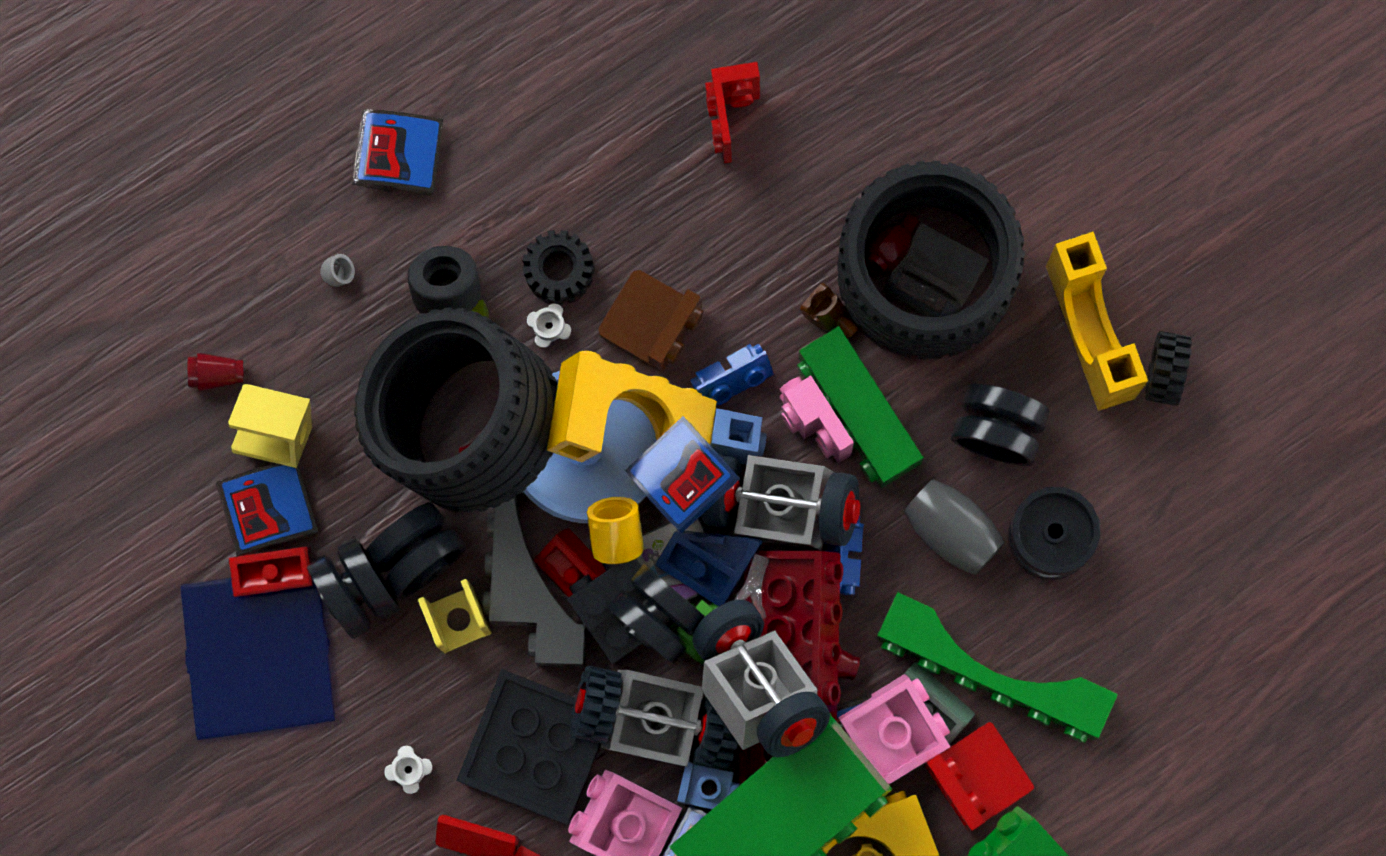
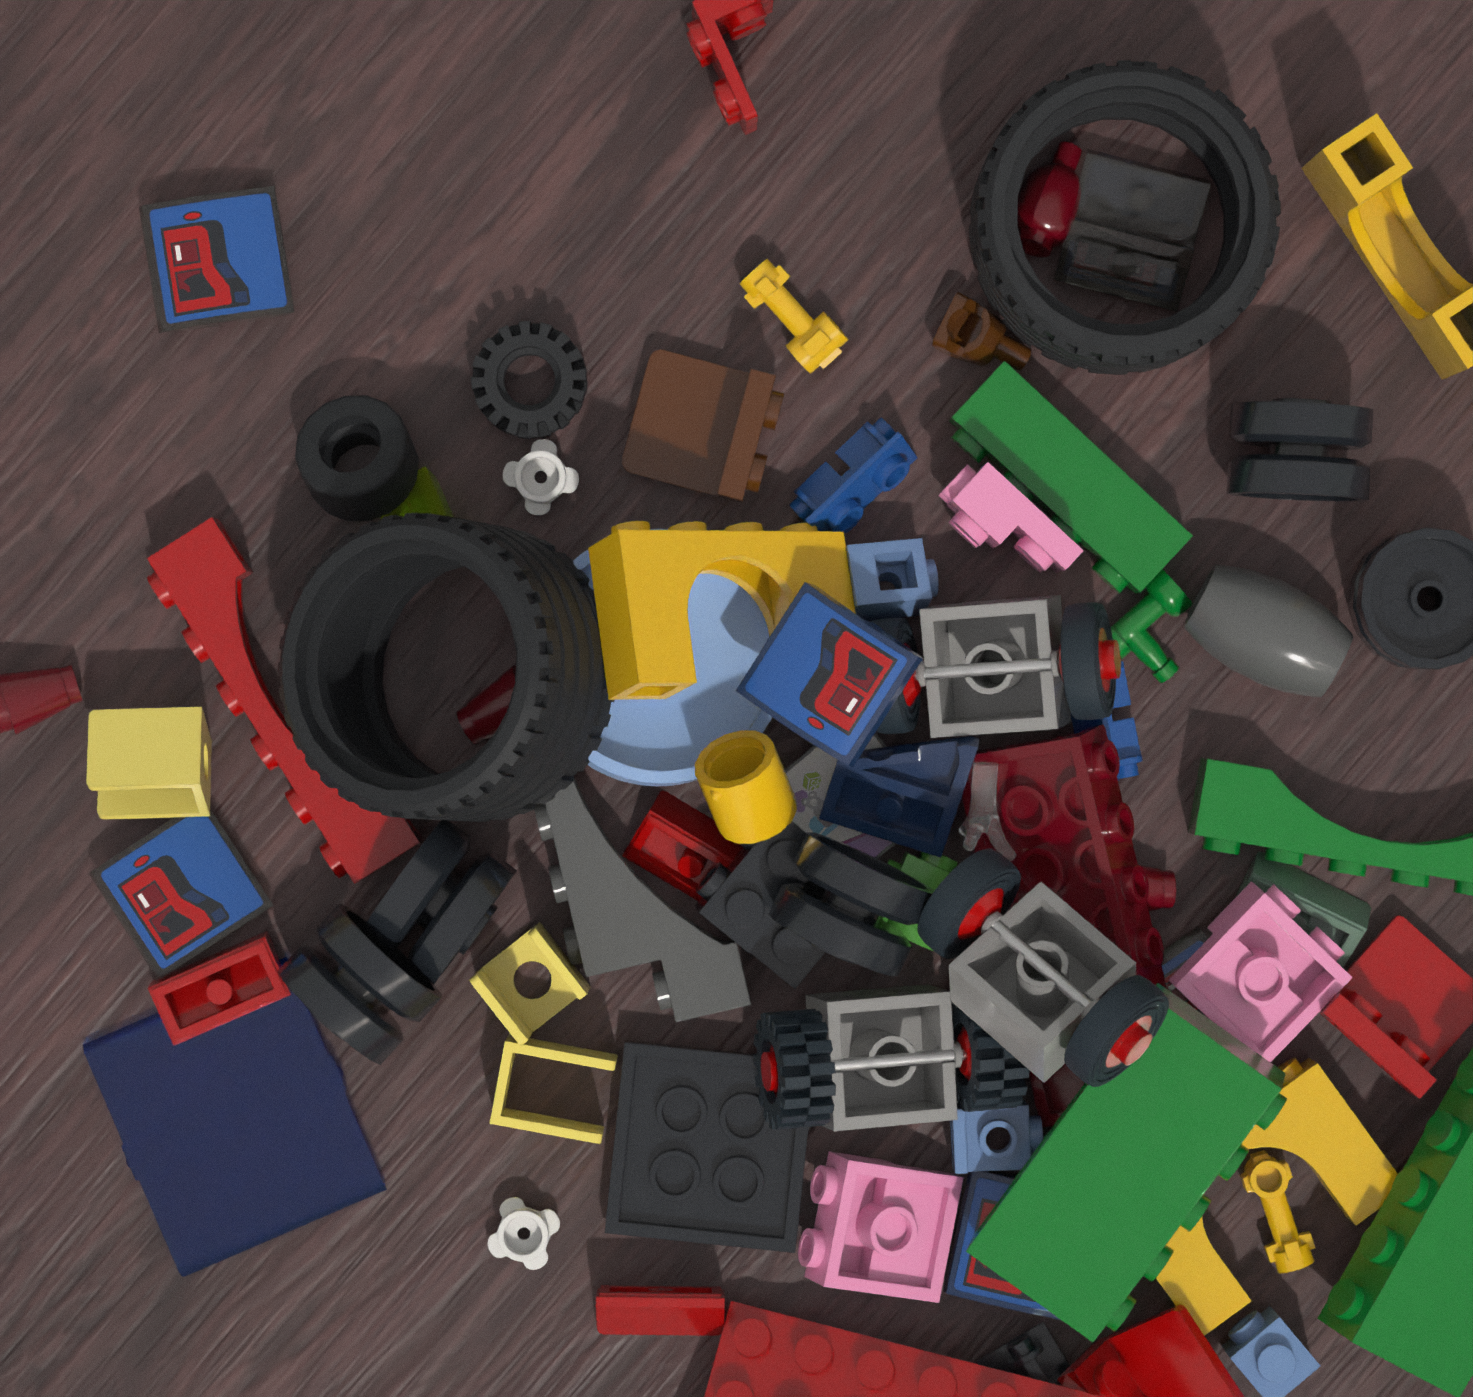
camera: 20 degrees left, 10 degrees up
(336, 330) = (205, 581): none -> red arch
(340, 274) = (178, 481): light grey hinge -> none
(424, 669) = (538, 1122): none -> light yellow piece
(731, 289) = (815, 340): none -> yellow bar
(872, 508) = (1132, 627): none -> green piece

